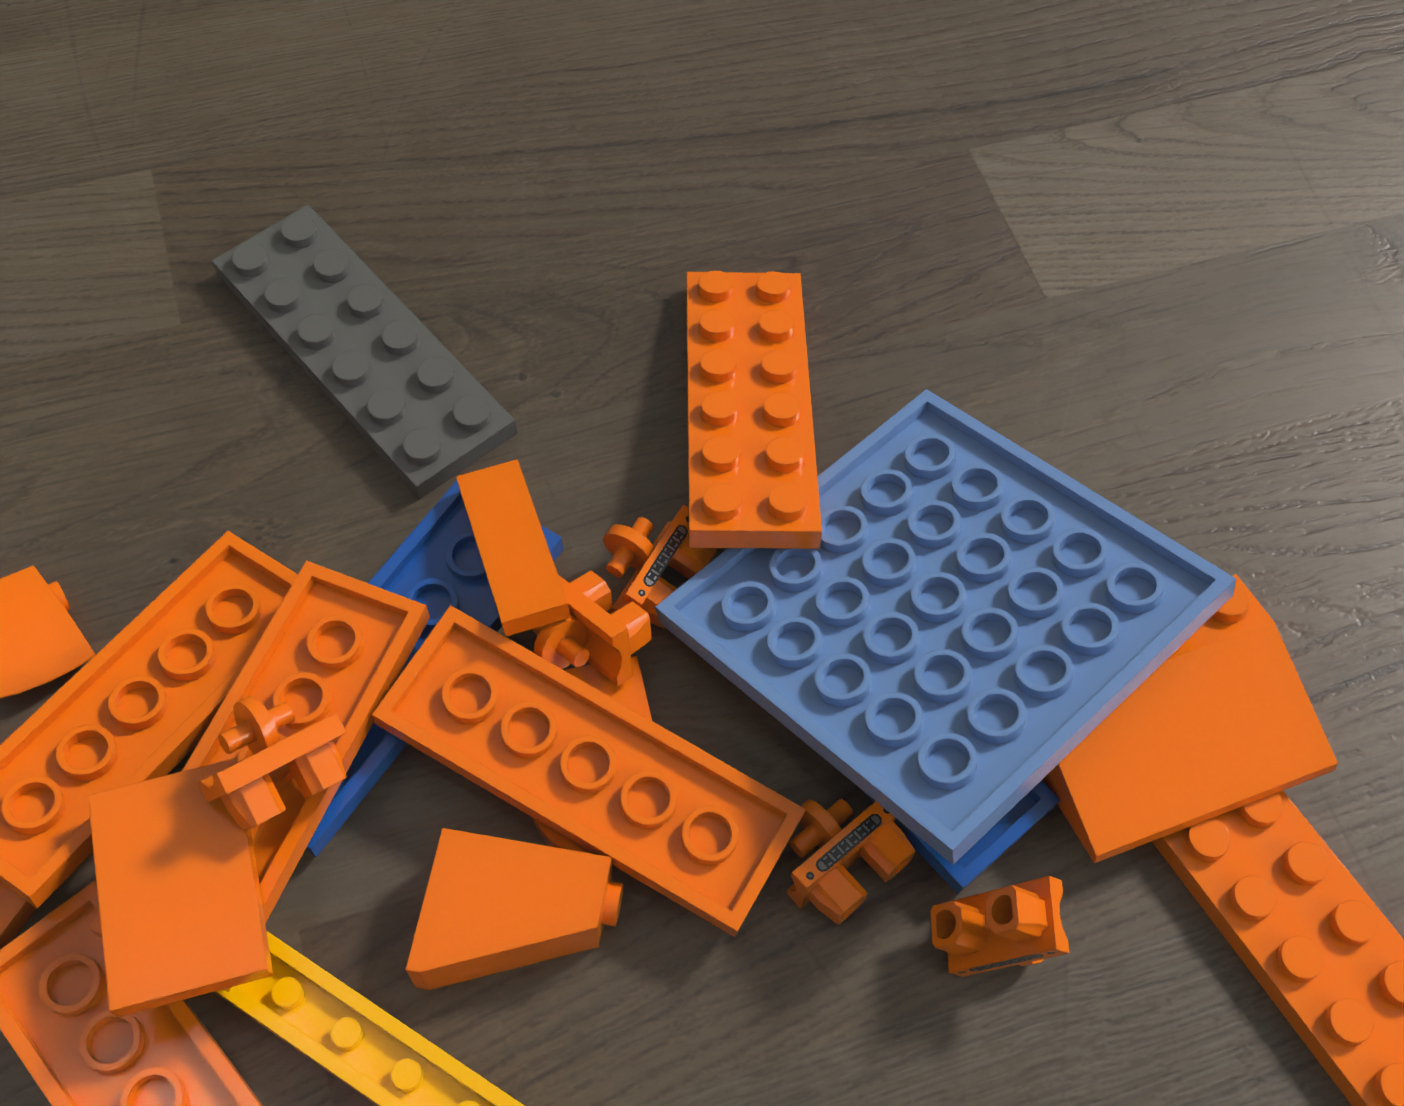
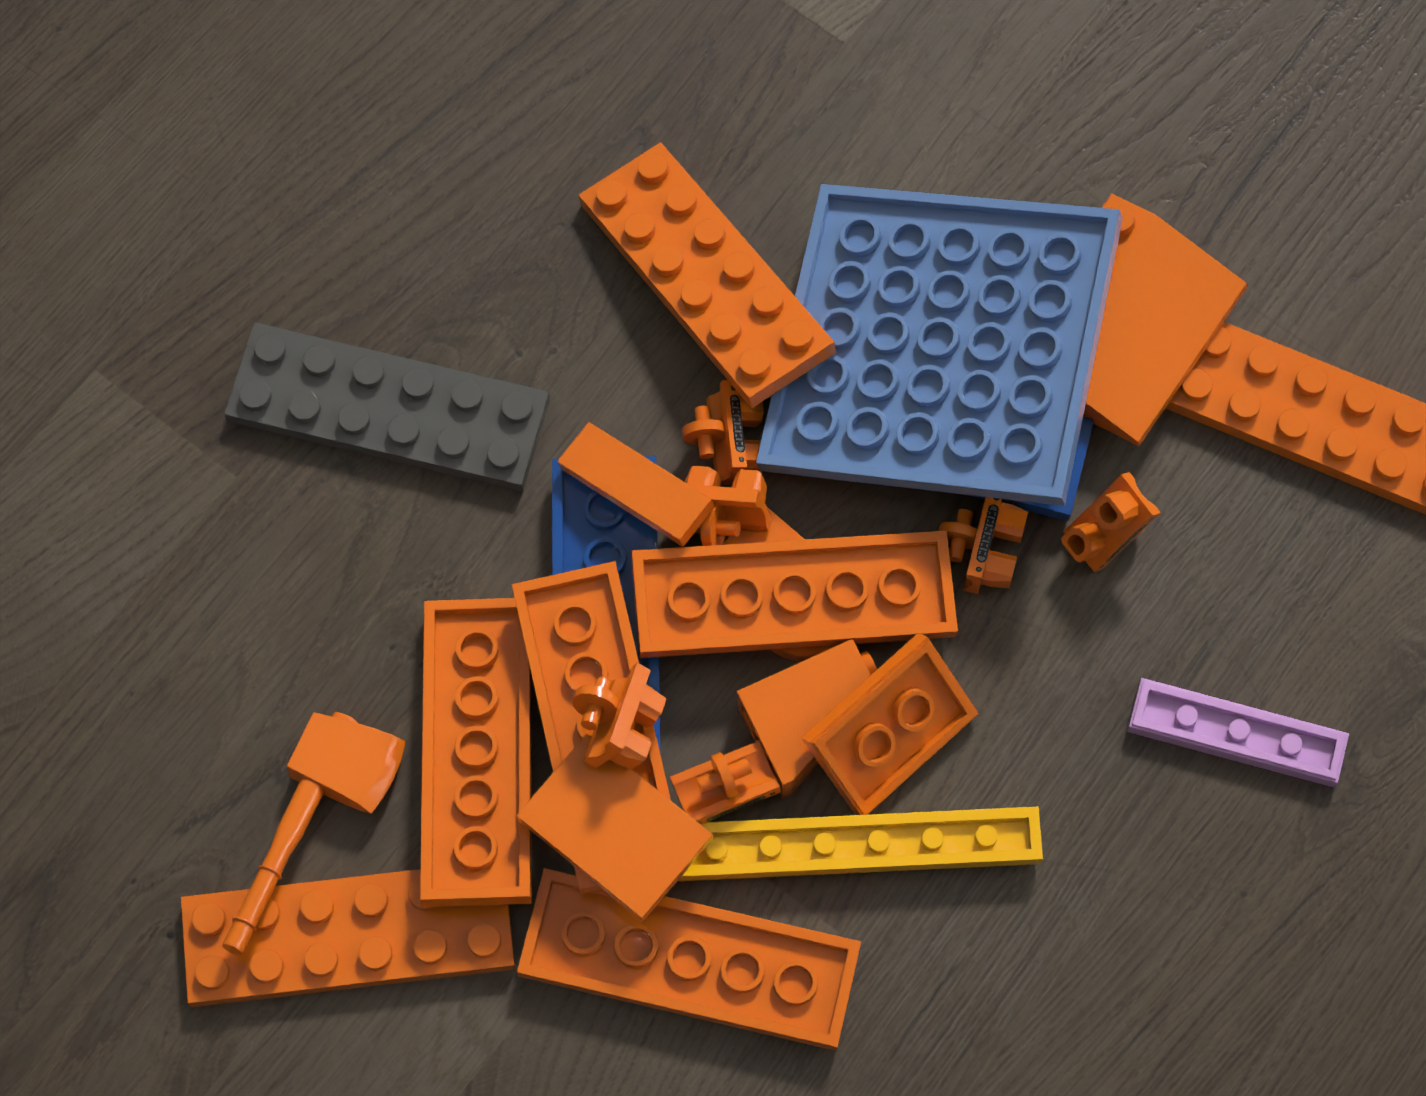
camera: 30 degrees left, 10 degrees up
(350, 924) = (725, 783): none -> orange hips
(580, 987) = (890, 725): none -> orange tile

